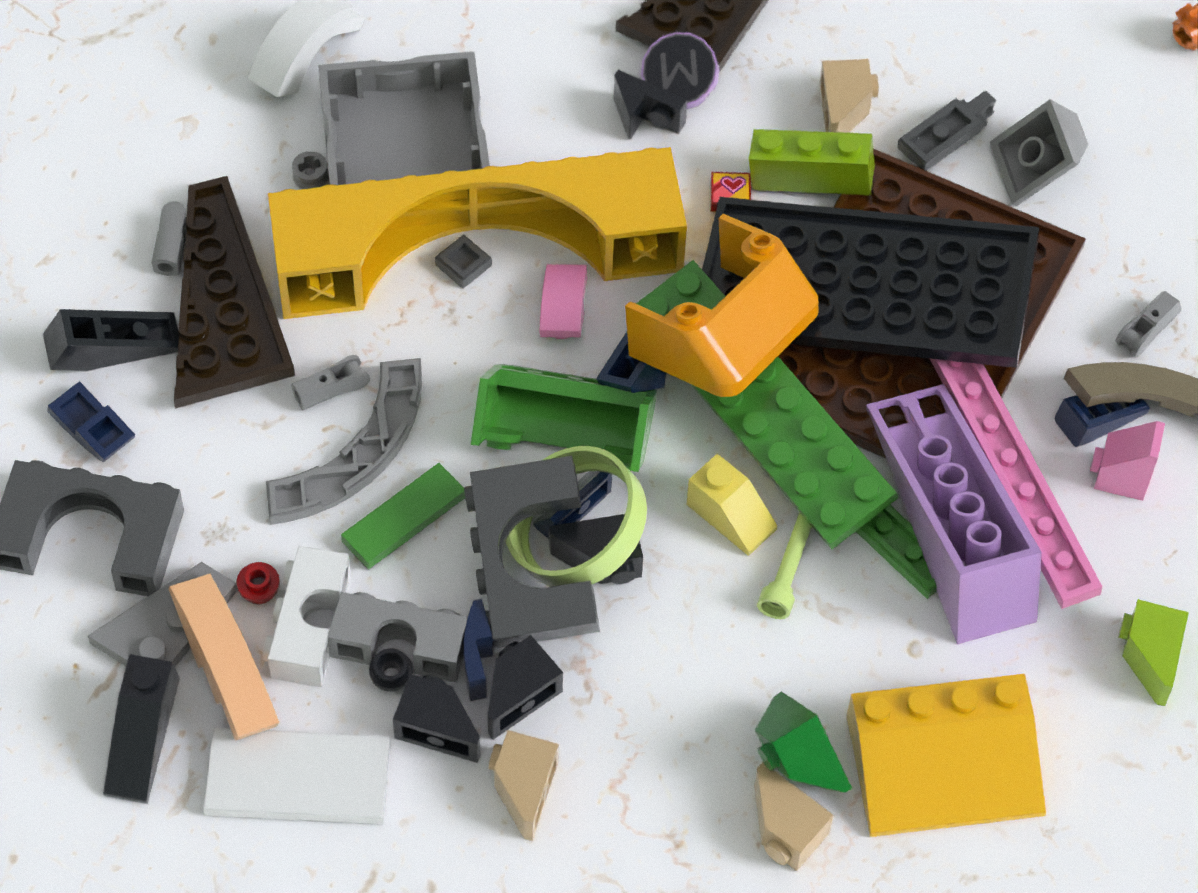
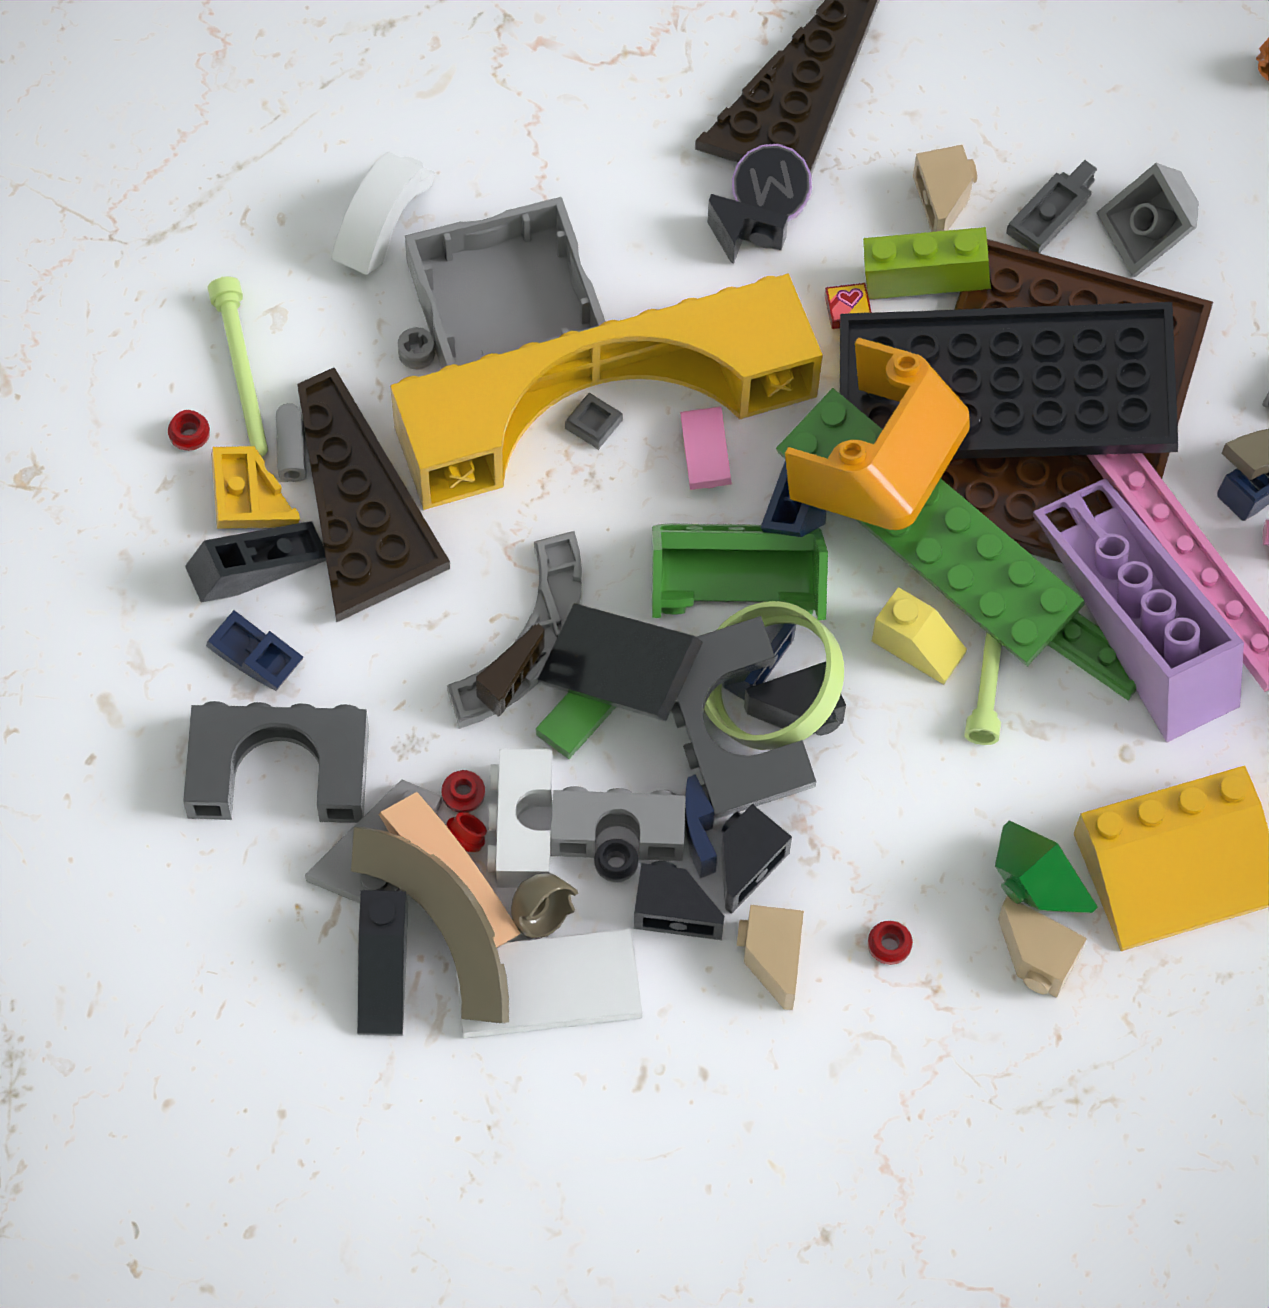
camera: 10 degrees left, 5 degrees up
(75, 205) = (184, 421): none -> red plate
(118, 275) = (247, 492): none -> yellow wing
(142, 98) = (226, 296): none -> yellowish green piece
(215, 689) = (452, 910): none -> dark tan tile
(252, 620) = (468, 831): none -> red plate
(306, 699) = (542, 904): none -> dark tan hair
(319, 479) = (504, 676): none -> dark brown slope
(325, 385) = (483, 572): light grey bar -> none
(430, 480) = (620, 661): none -> black tile
(641, 779) = (890, 930): none -> red plate

